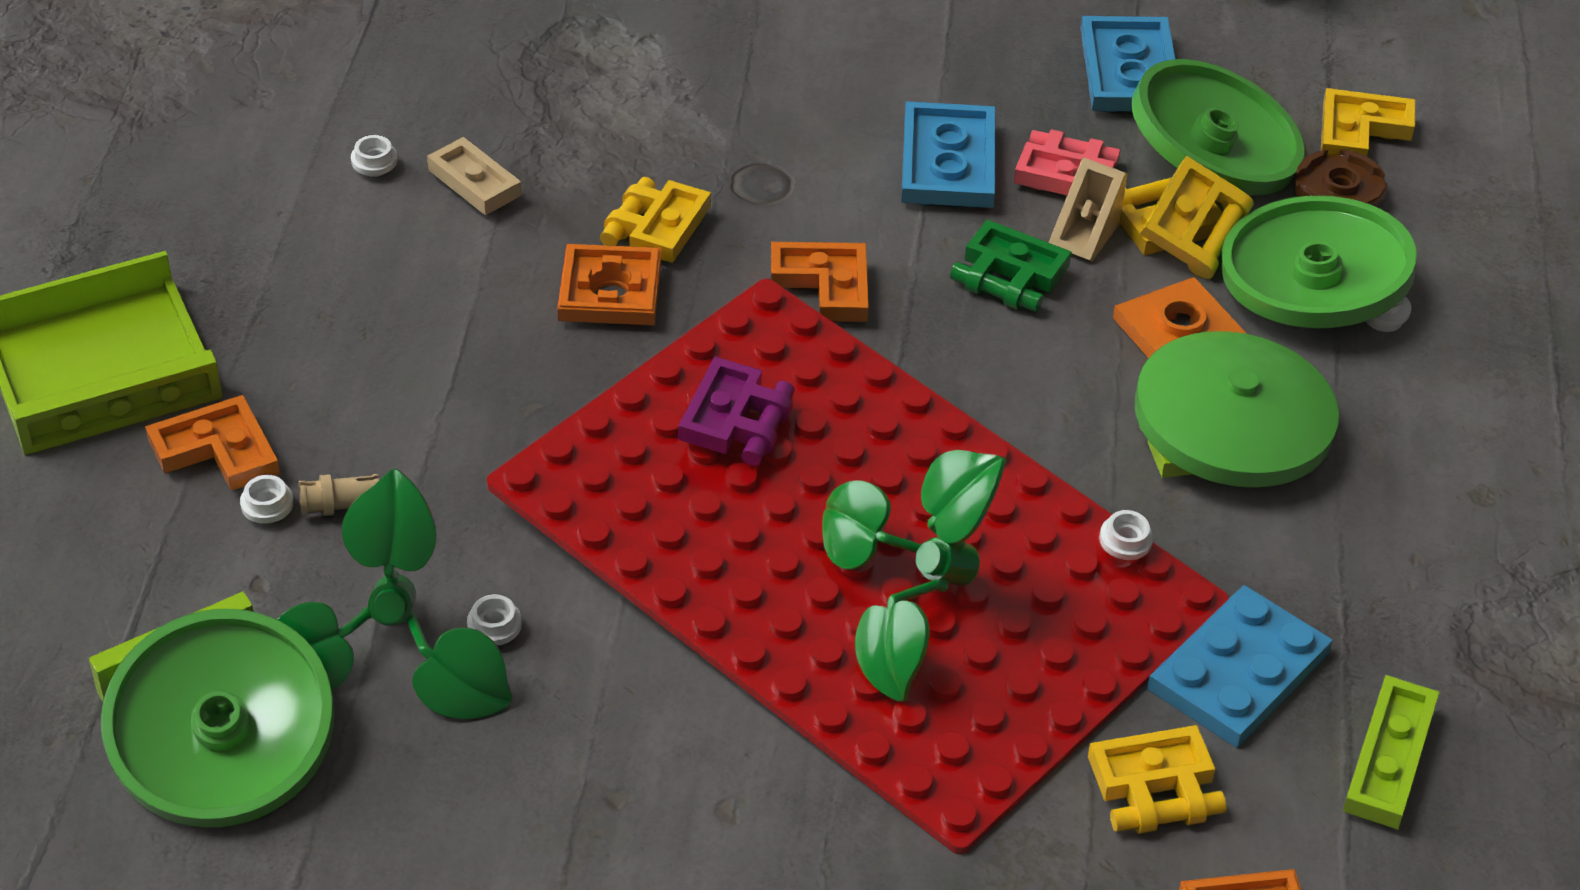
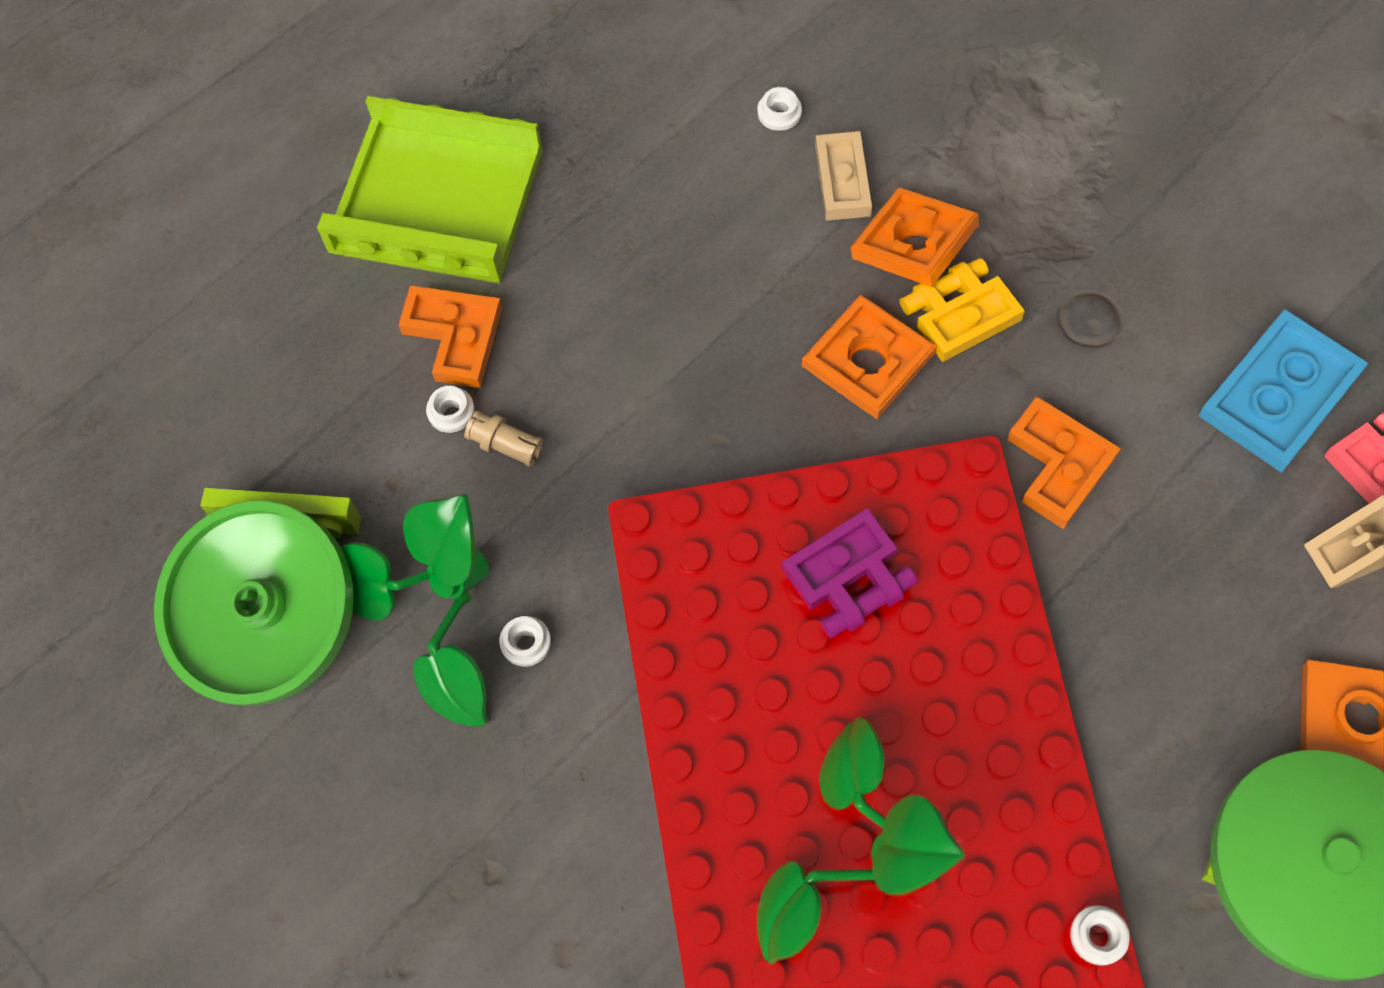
camera: 45 degrees right, 20 degrees up
(558, 183) = (915, 215): none -> orange piece
(1014, 255) = (1255, 543): green plate -> none

